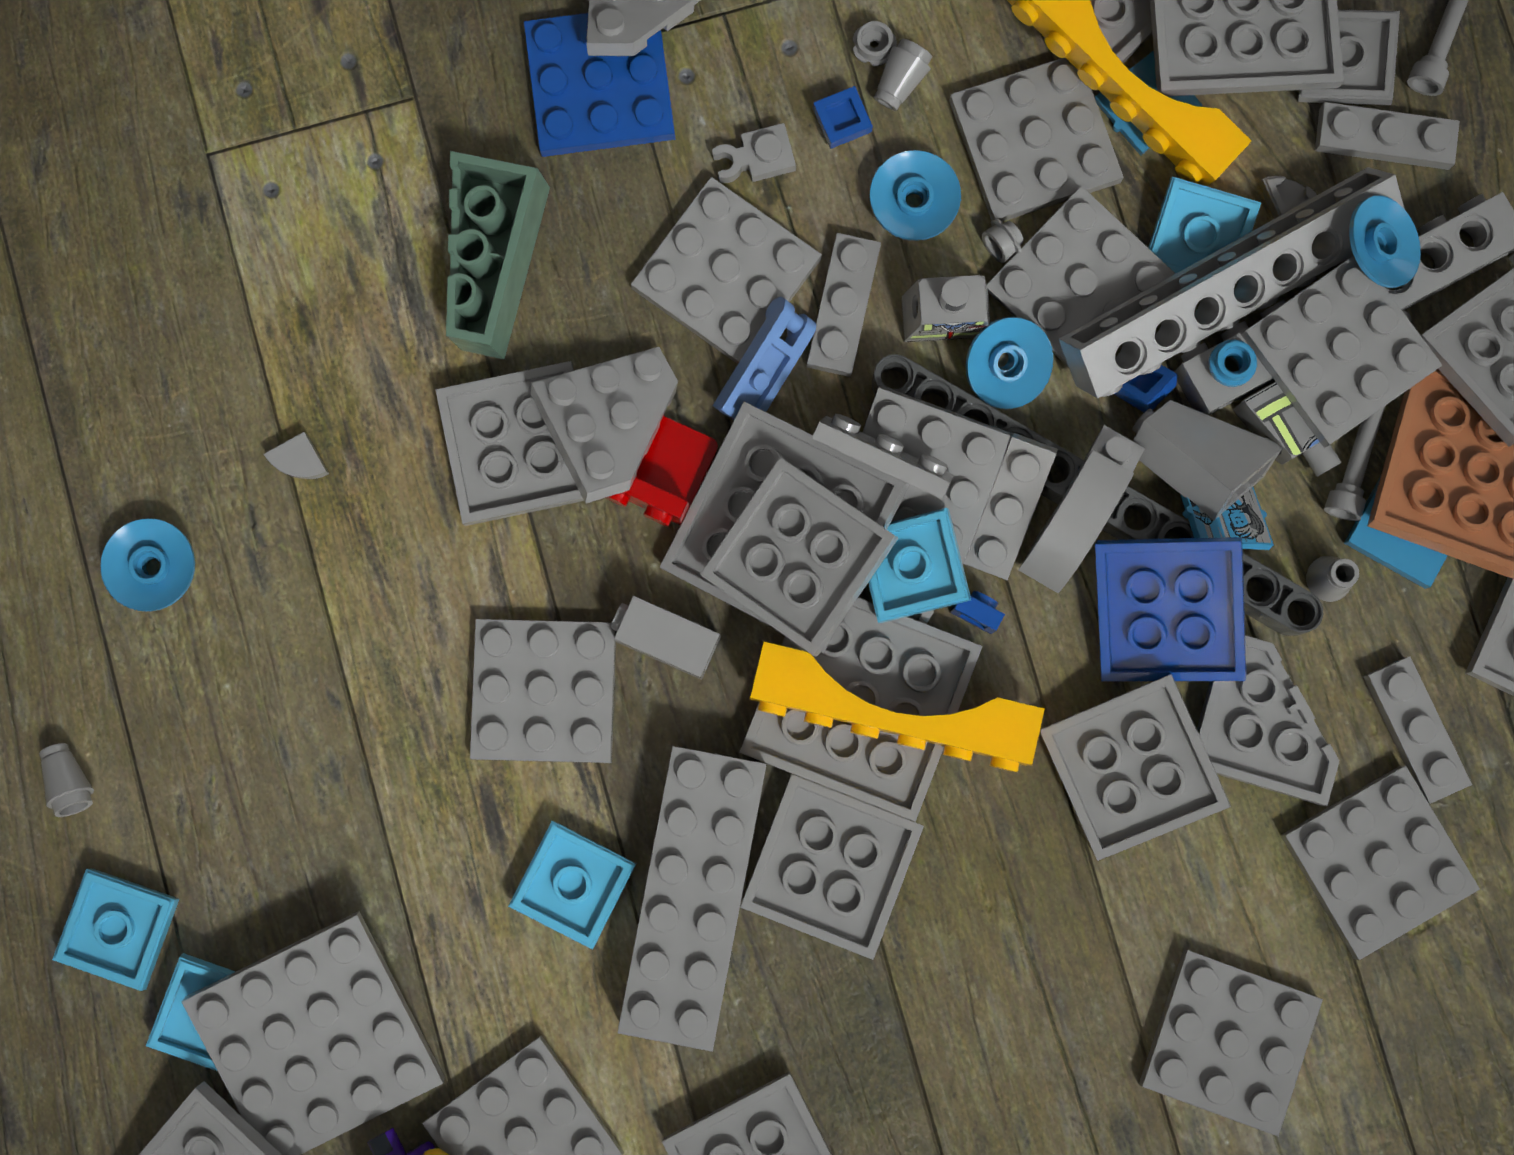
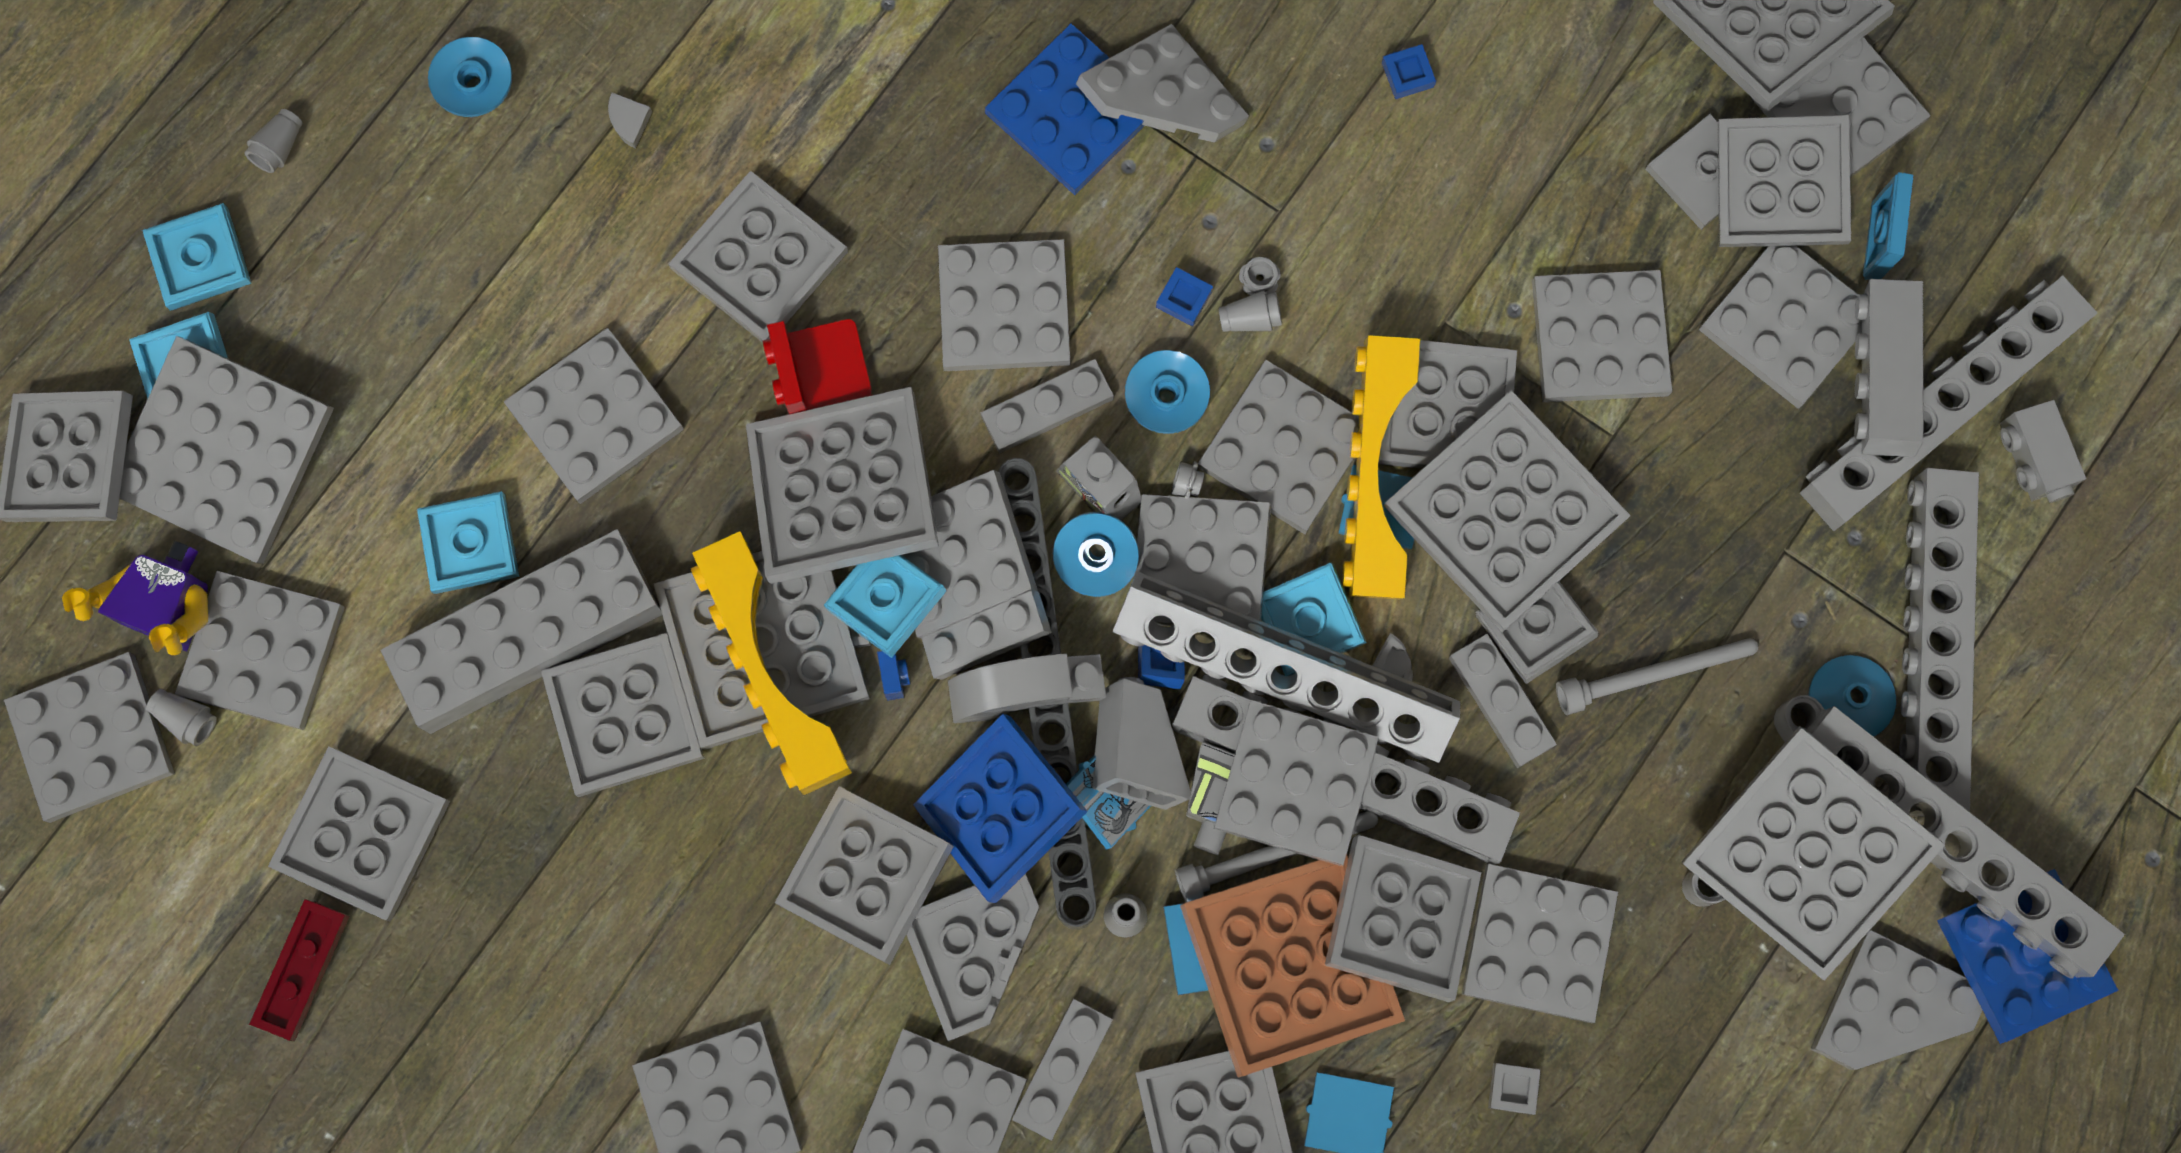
camera: 50 degrees right, 5 degrees down
(490, 248) = (880, 128): sand green wedge -> none
(606, 418) = (821, 301): light grey plate -> none
(665, 636) = (696, 467): light grey brick -> none
(762, 152) = (1111, 263): light grey plate -> none
(767, 359) = (958, 382): medium blue plate -> none
(798, 557) = (821, 507): light grey plate -> none
(884, 455) = (943, 510): light grey plate -> none
(1242, 353) = (1225, 697): dark azure plate -> none
(1384, 241) = (1413, 758): dark azure dish -> none

